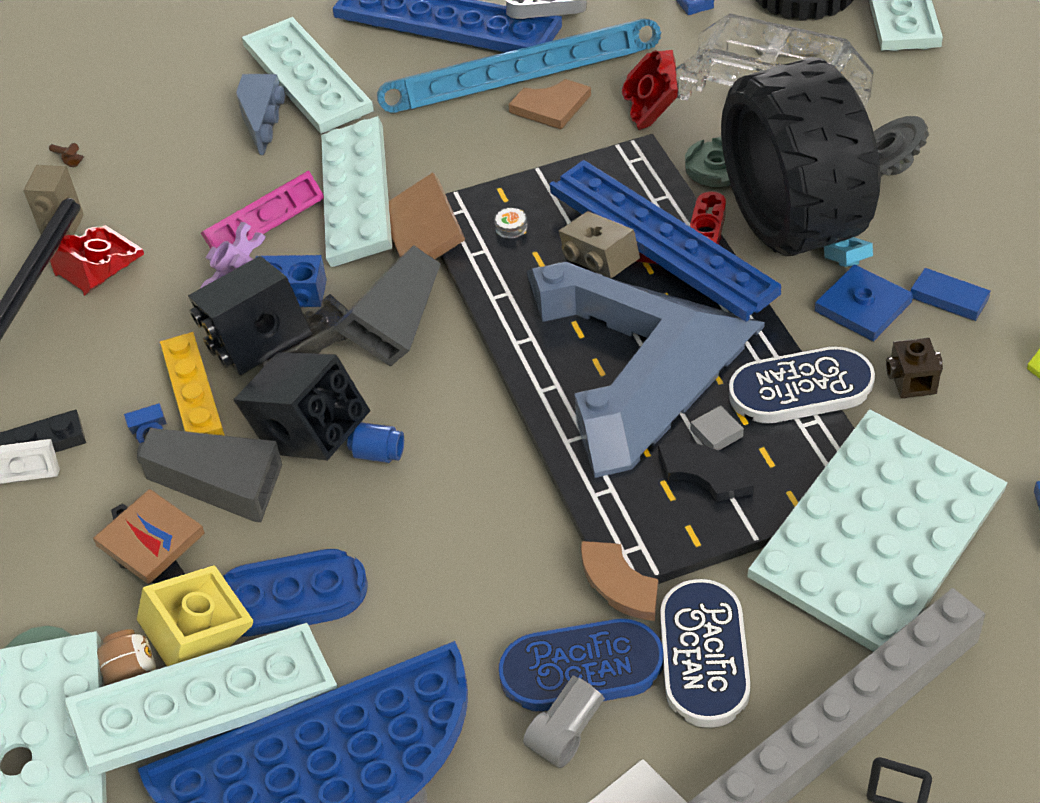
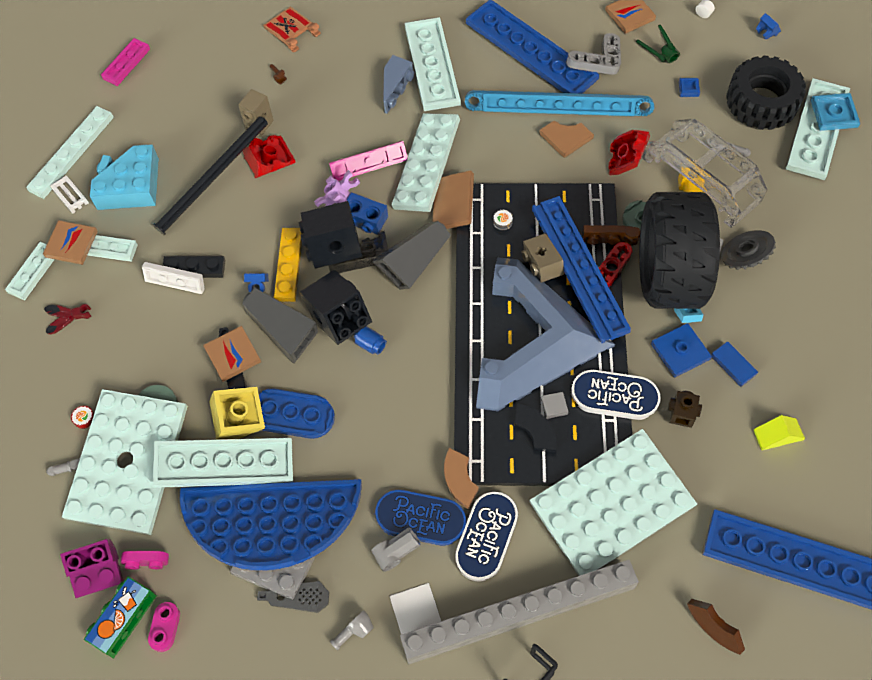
camera: 20 degrees right, 15 degrees up
(61, 91) = (290, 25): none -> nougat flag
(124, 656) = (195, 424): medium nougat head -> none
(684, 186) = (610, 234): none -> reddish brown hinge

